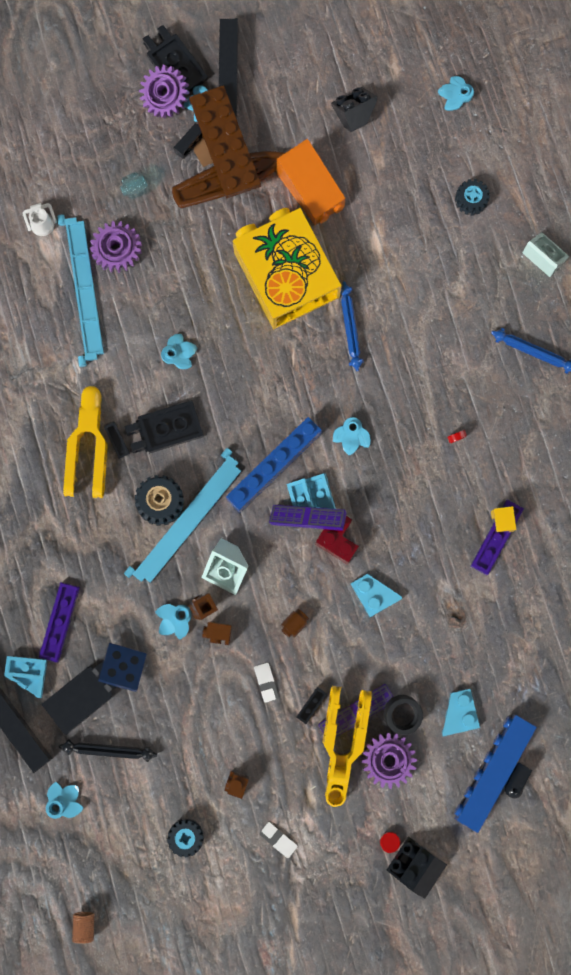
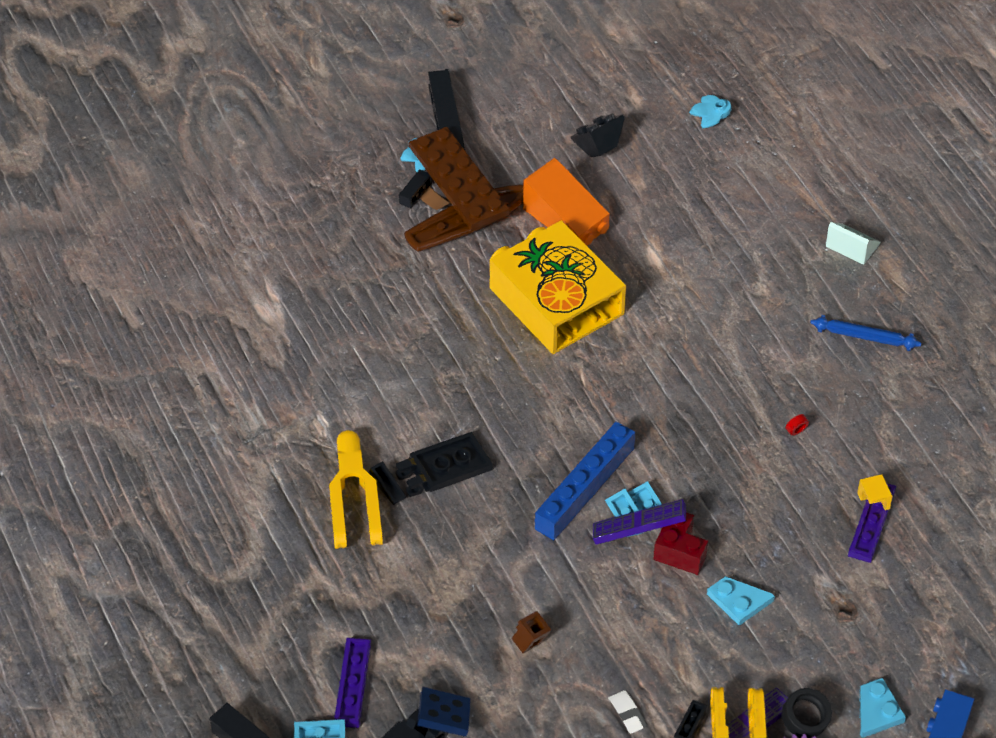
camera: 10 degrees left, 30 degrees down
(40, 220) = (255, 281): white piece -> none
(84, 289) = (318, 344): medium azure piece -> none
(111, 236) = (349, 295): medium lavender gear -> none
(133, 185) = (359, 235): clear light blue head -> none
(153, 87) = (383, 132): medium lavender gear -> none
(159, 500) = (453, 533): black wheel -> none
(172, 622) = (495, 661): medium azure plate -> none
(175, 54) = (382, 120): black tile -> none
(181, 350) = (444, 388): medium azure plate -> none
(188, 520) = (491, 556): medium azure piece -> none
(217, 633) = (555, 661): reddish brown brick -> none
(226, 567) = (550, 591): light aqua slope -> none
(294, 623) = (648, 639): reddish brown brick -> none
(350, 326) = (644, 338): blue wheel -> none
(351, 438) = (671, 444): medium azure plate -> none
(476, 191) = (754, 199): black wheel -> none

